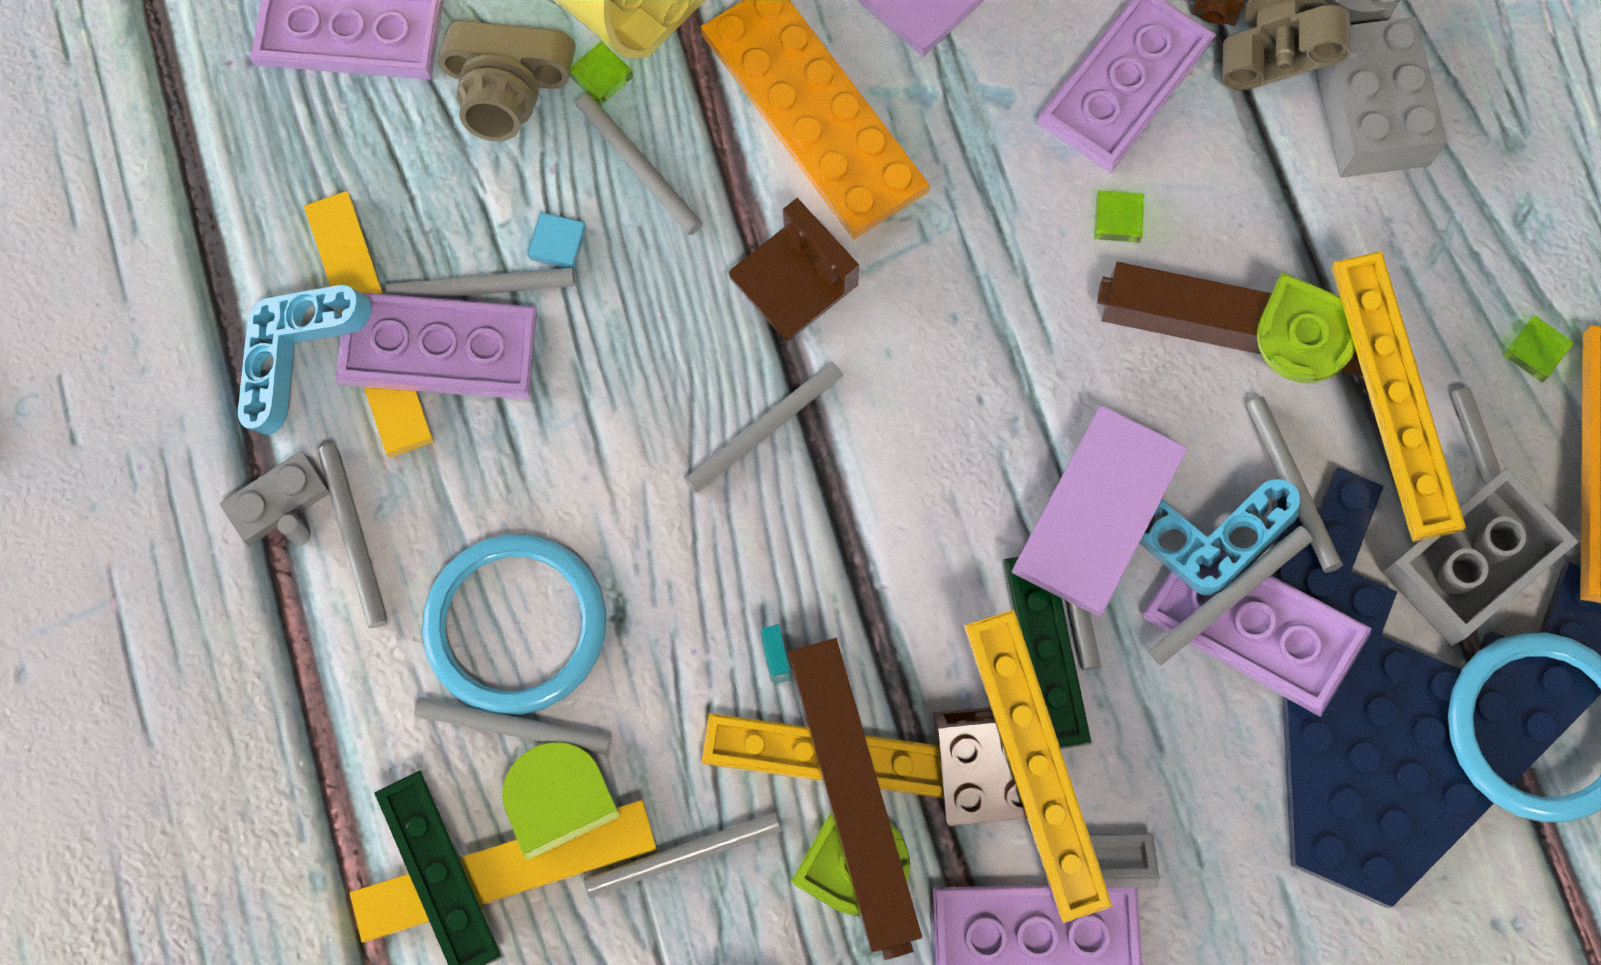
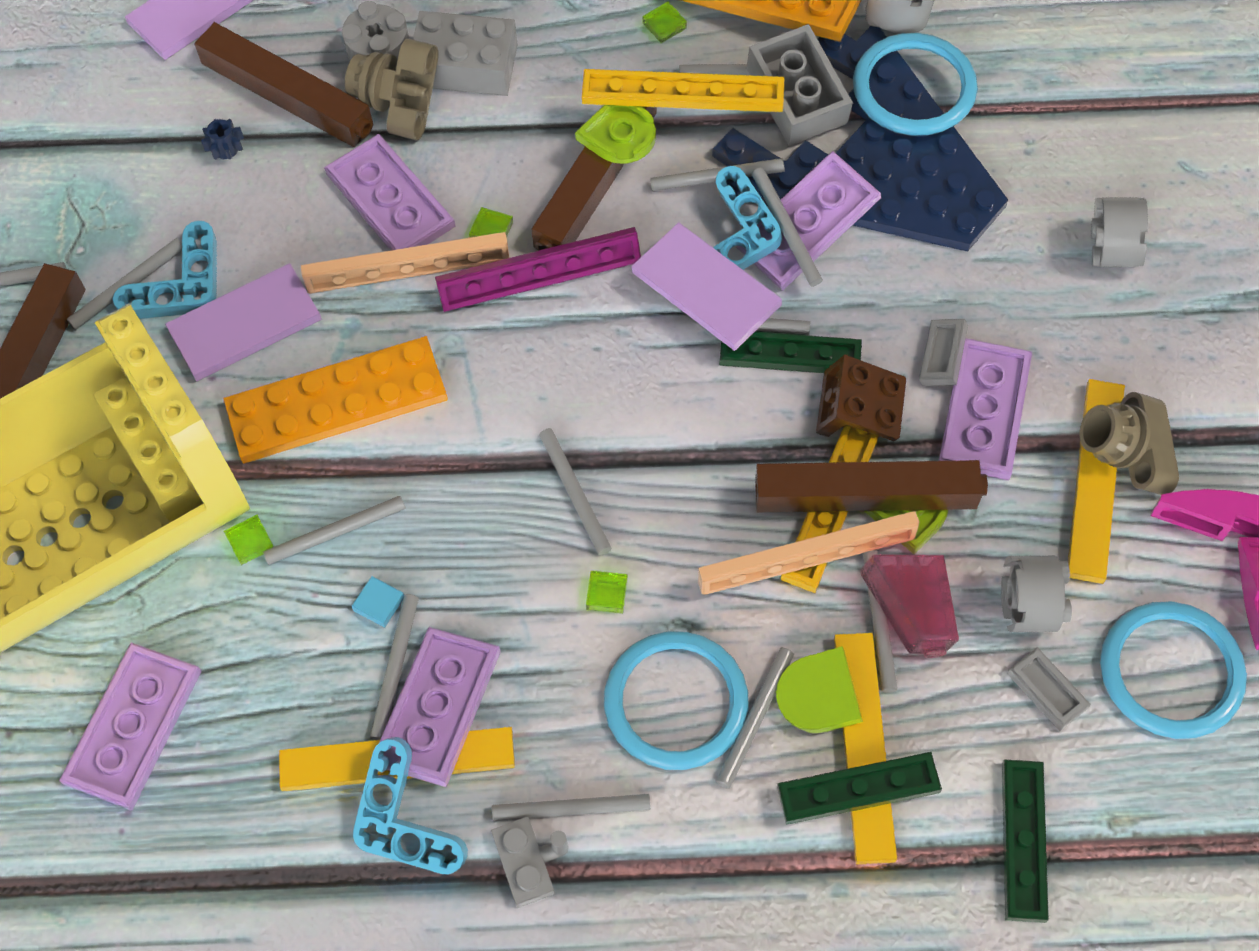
camera: 75 degrees left, 10 degrees down
(503, 73) = (225, 604): dark tan beam -> none
(635, 502) = (606, 592): none -> clear neon green tile
(707, 896) = (915, 600): none -> clear pink slope
(737, 739) = (807, 553): none -> light nougat tile
(775, 654) = (751, 518): teal tile -> none
(796, 272) = (464, 435): reddish brown bracket -> none
(1027, 129) = (404, 263): none -> light nougat tile
(1038, 766) = (875, 361): yellow tile -> none
(1069, 293) = (538, 269): none -> magenta tile

